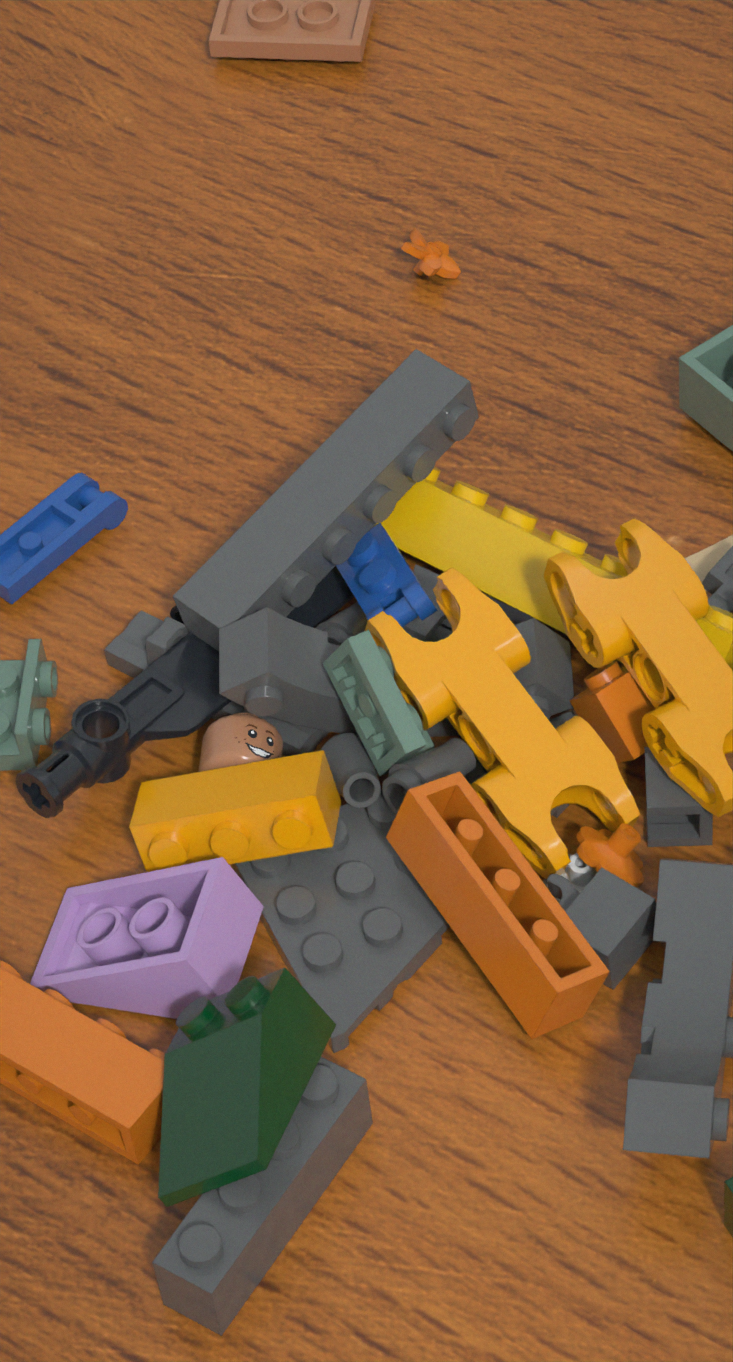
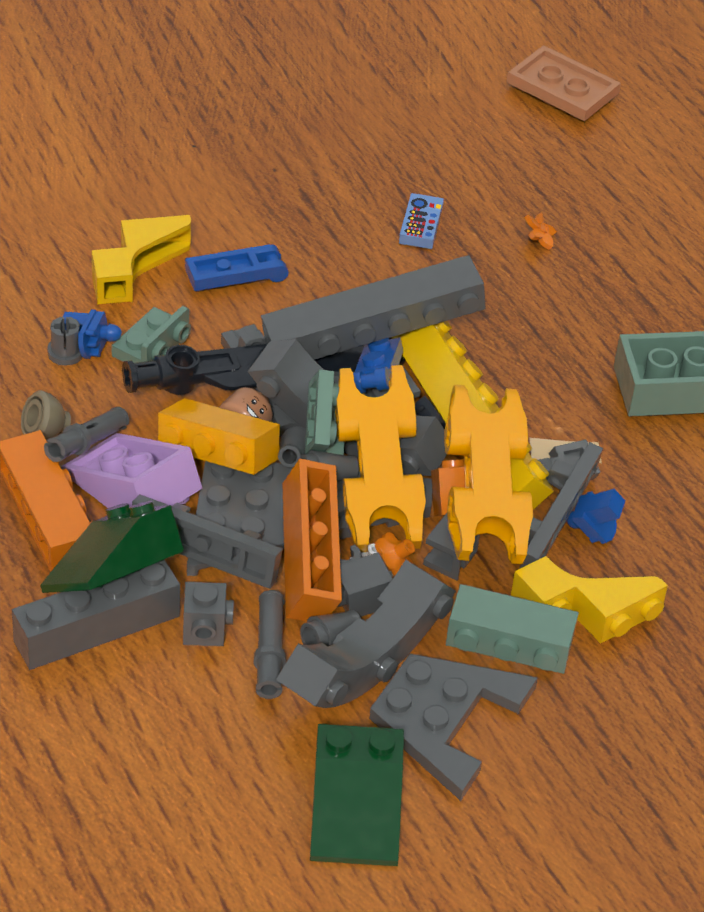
camera: 20 degrees right, 5 degrees down
(36, 930) = (79, 437): none -> dark grey pin
(253, 326) = (421, 221): none -> medium blue tile
(362, 984) = (217, 544): none -> dark grey hinge
(422, 1100) = (206, 613): none -> dark grey brick
(556, 1113) = (269, 656): none -> dark grey pin
(608, 1026) = (326, 627): none -> dark grey cone

